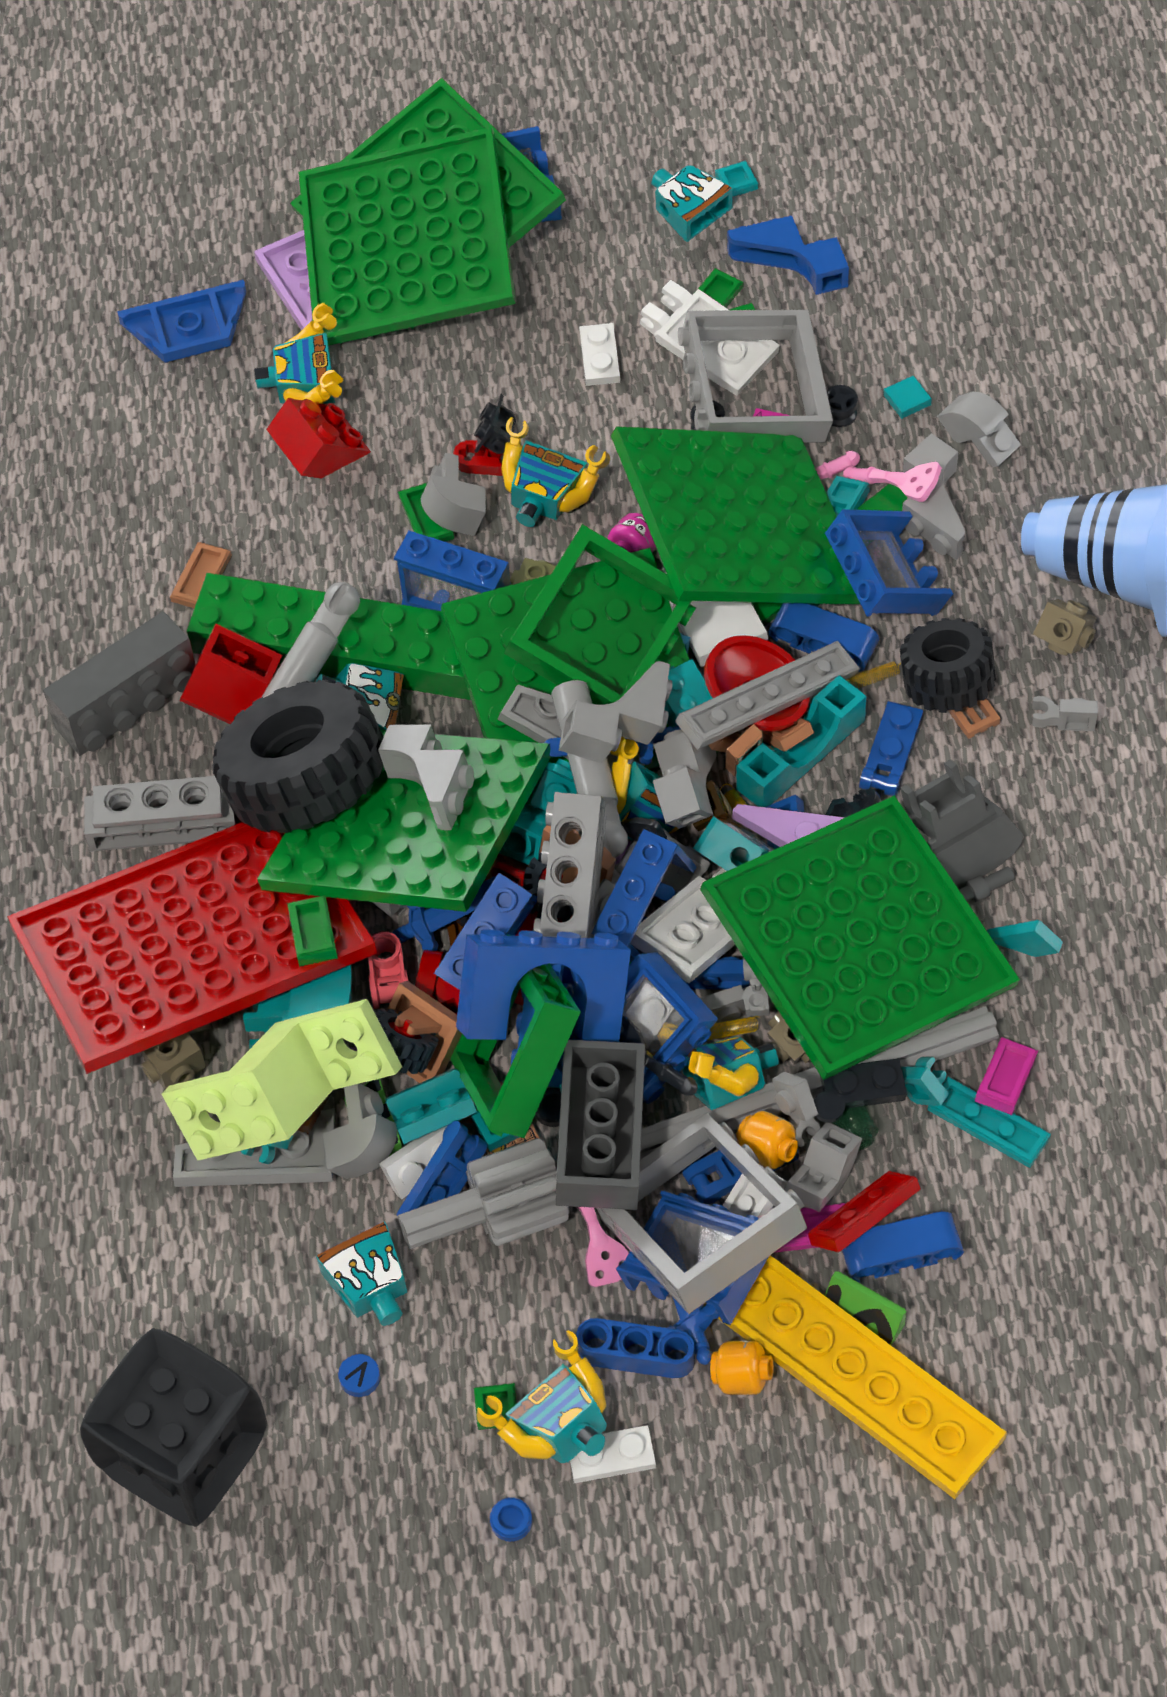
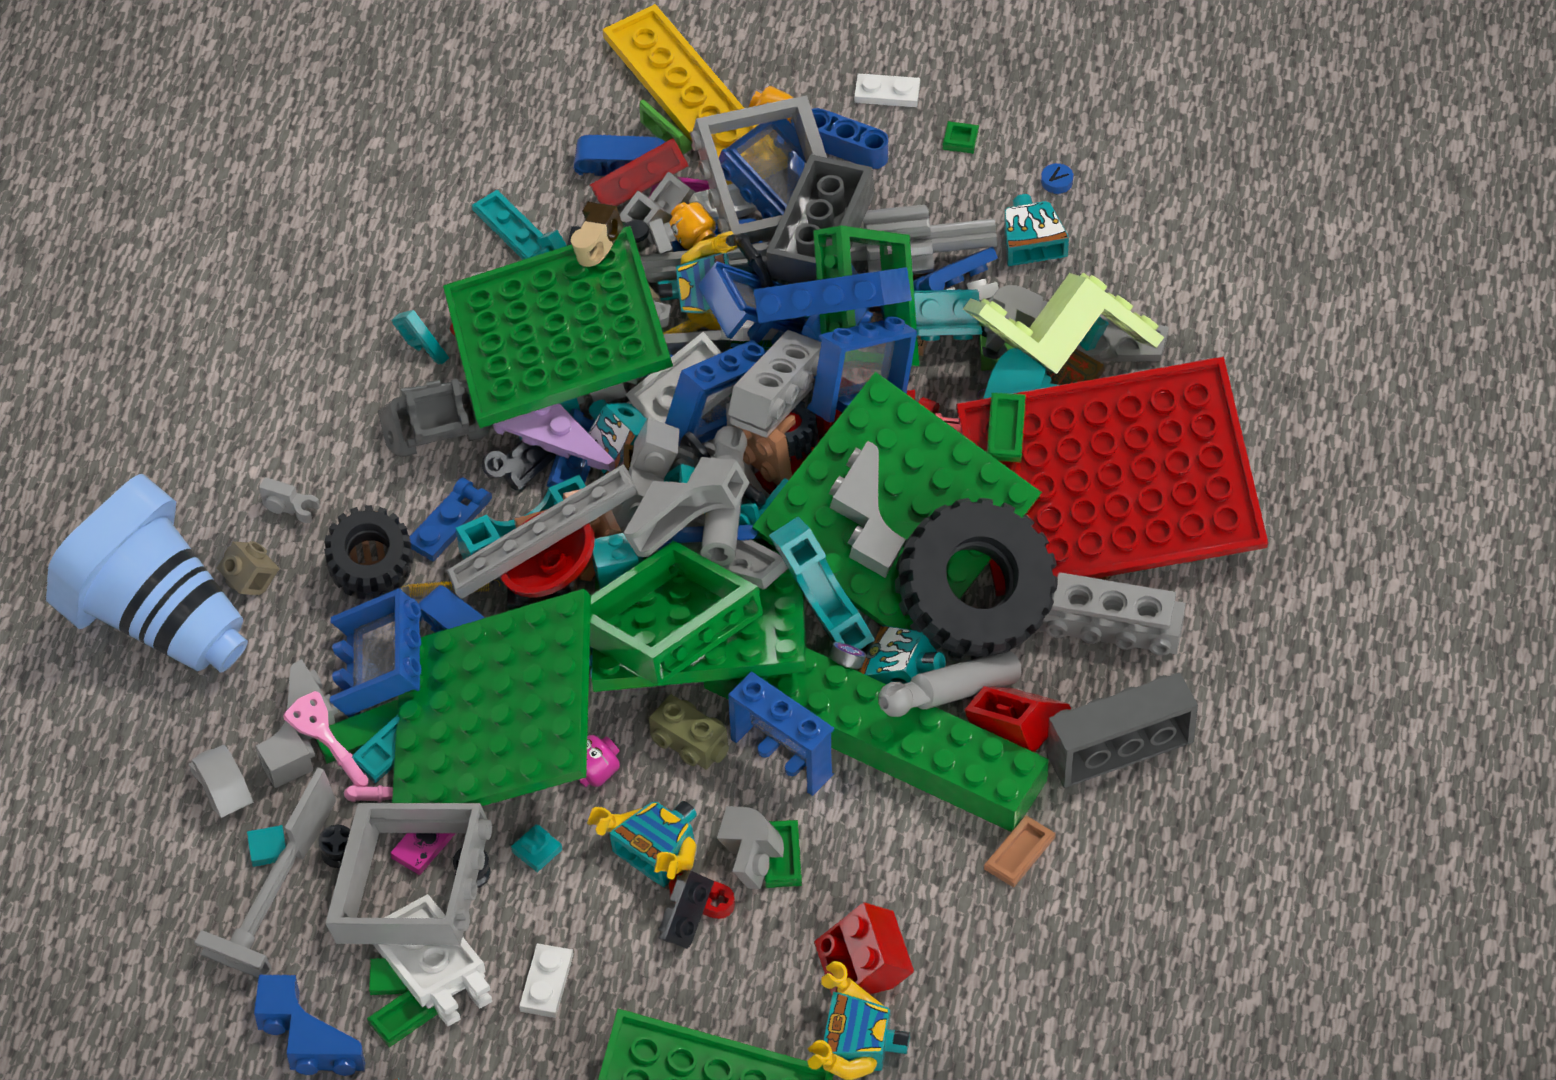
camera: 165 degrees left, 5 degrees down
(174, 1426) = (1205, 136): black piece -> none
(415, 680) = (847, 655): none -> flat silver tile
(419, 1032) = (951, 362): nougat plate -> none
(476, 703) = (819, 586): none -> teal arch
(511, 1519) = (973, 70): blue tile -> none
(557, 1415) = (920, 102): torso -> none
(855, 1037) = (597, 233): none -> leg
(883, 295) = (302, 831): none -> light grey piece
(1006, 1076) = (484, 247): dark pink tile -> none

